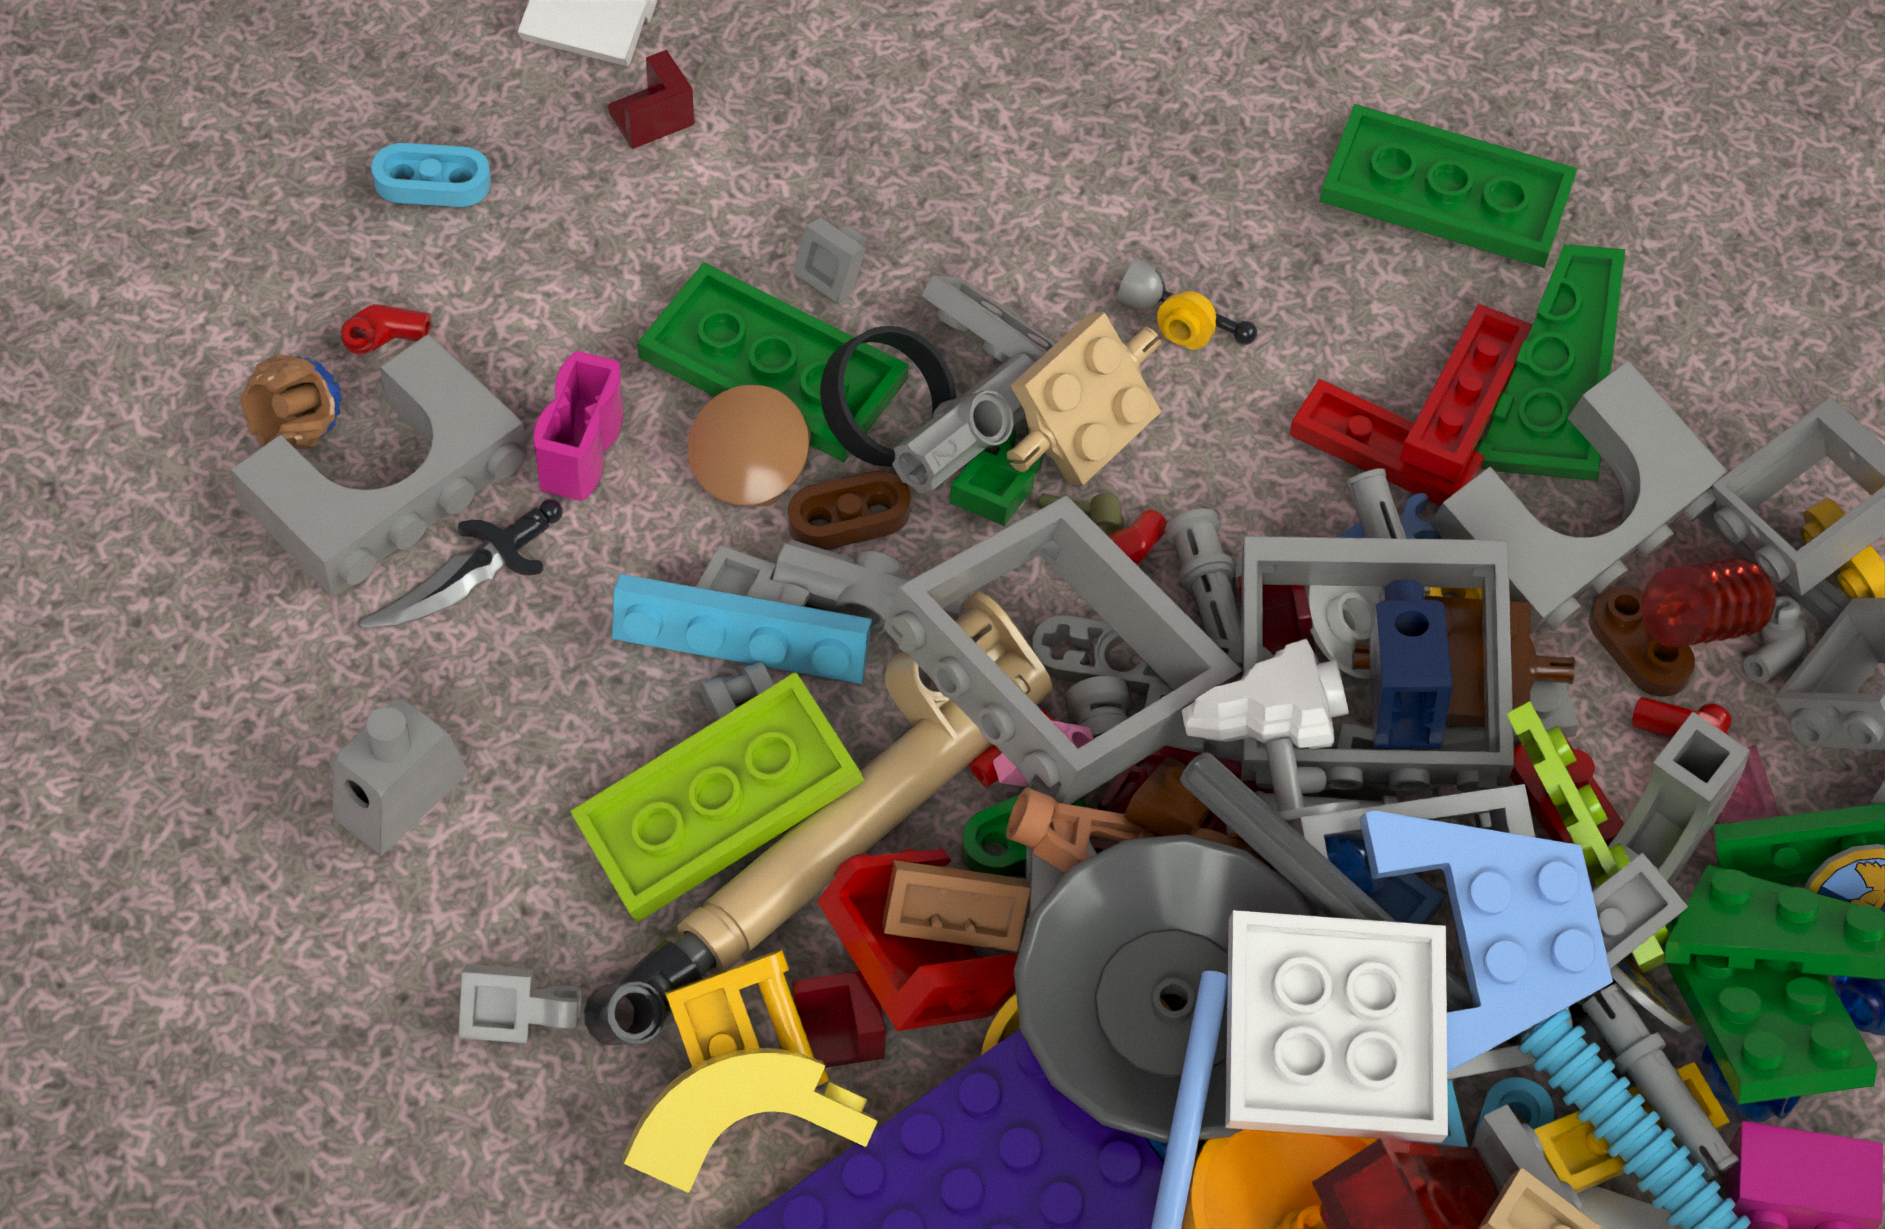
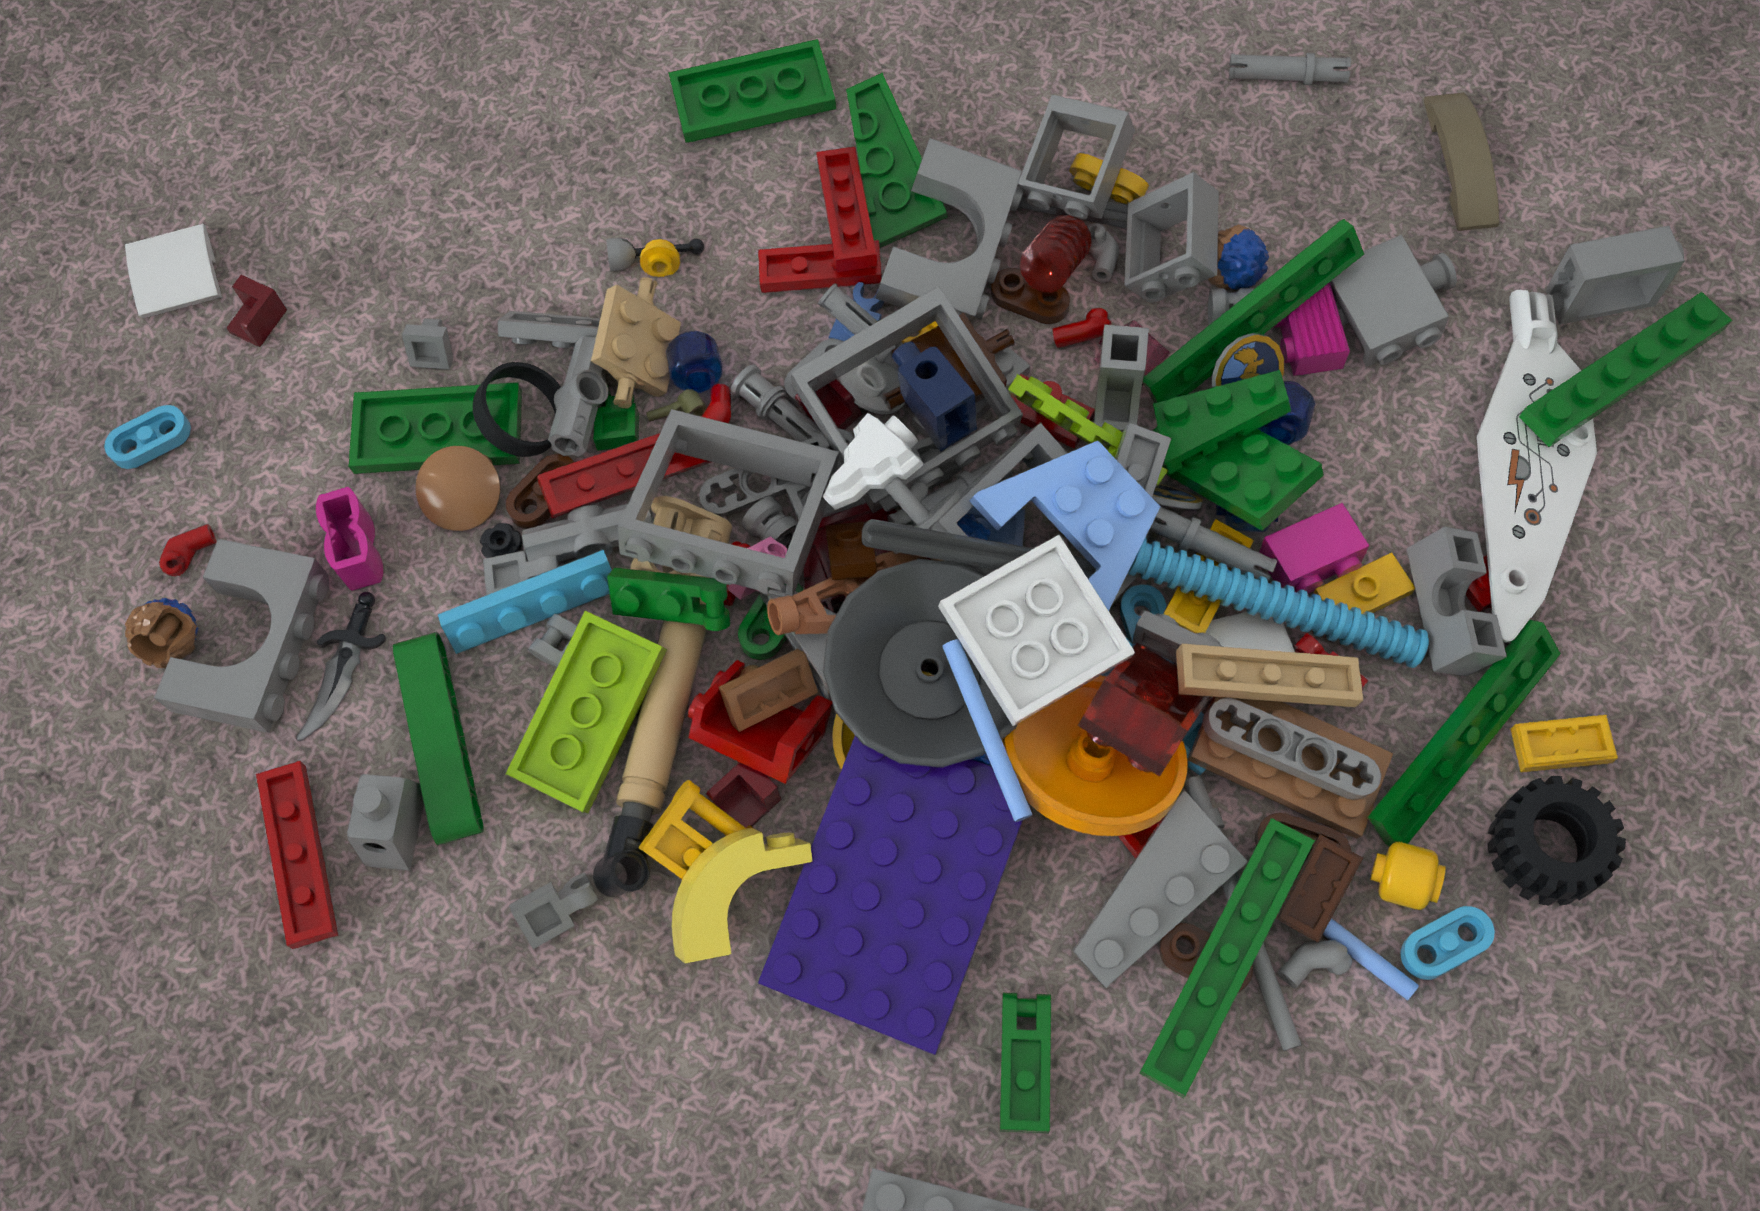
camera: 25 degrees left, 10 degrees up
(263, 752) = (296, 855): none -> red plate
(517, 720) = (436, 740): none -> green beam
(761, 526) = (503, 531): none -> black plate
(909, 720) = (669, 597): none -> green plate
(933, 531) = (605, 475): none -> red plate
(1143, 465) = (694, 361): none -> clear blue head

